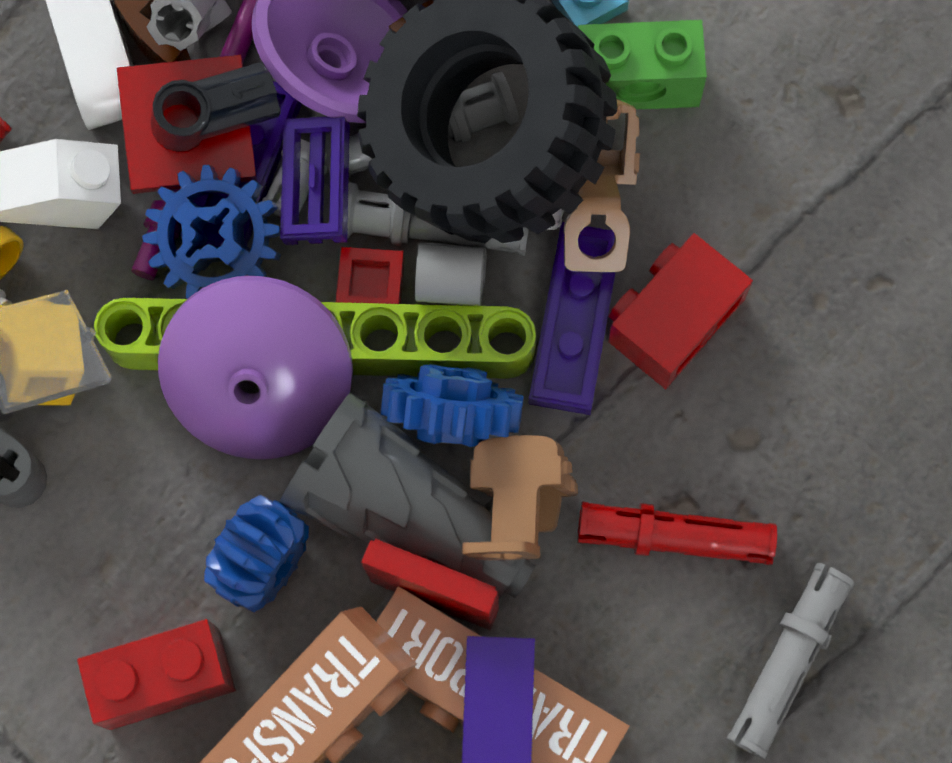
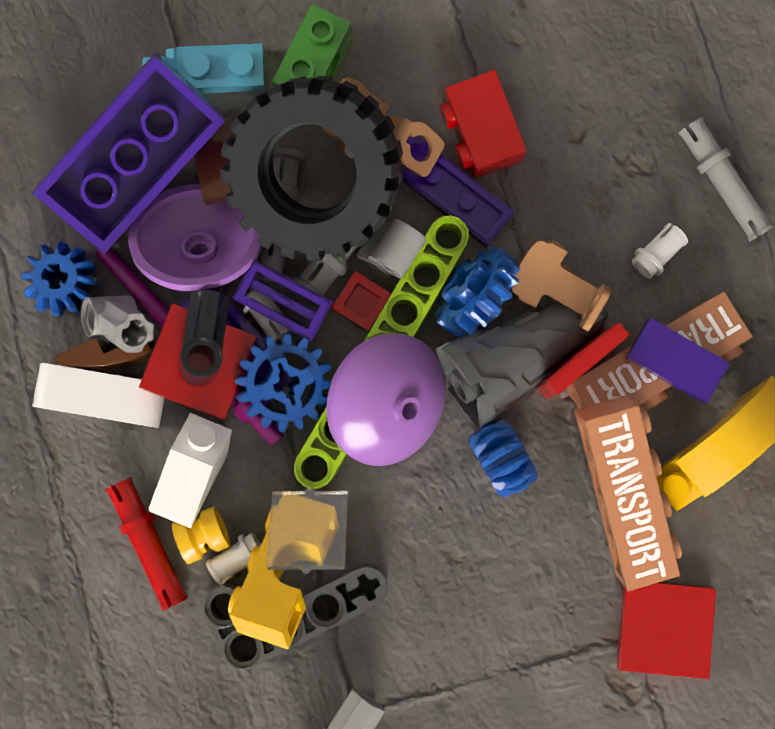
camera: 65 degrees left, 10 degrees up
(156, 675) = (544, 555): red brick -> none
(644, 622) = (652, 258): none -> white pin
(676, 533) = (607, 217): red pin -> none

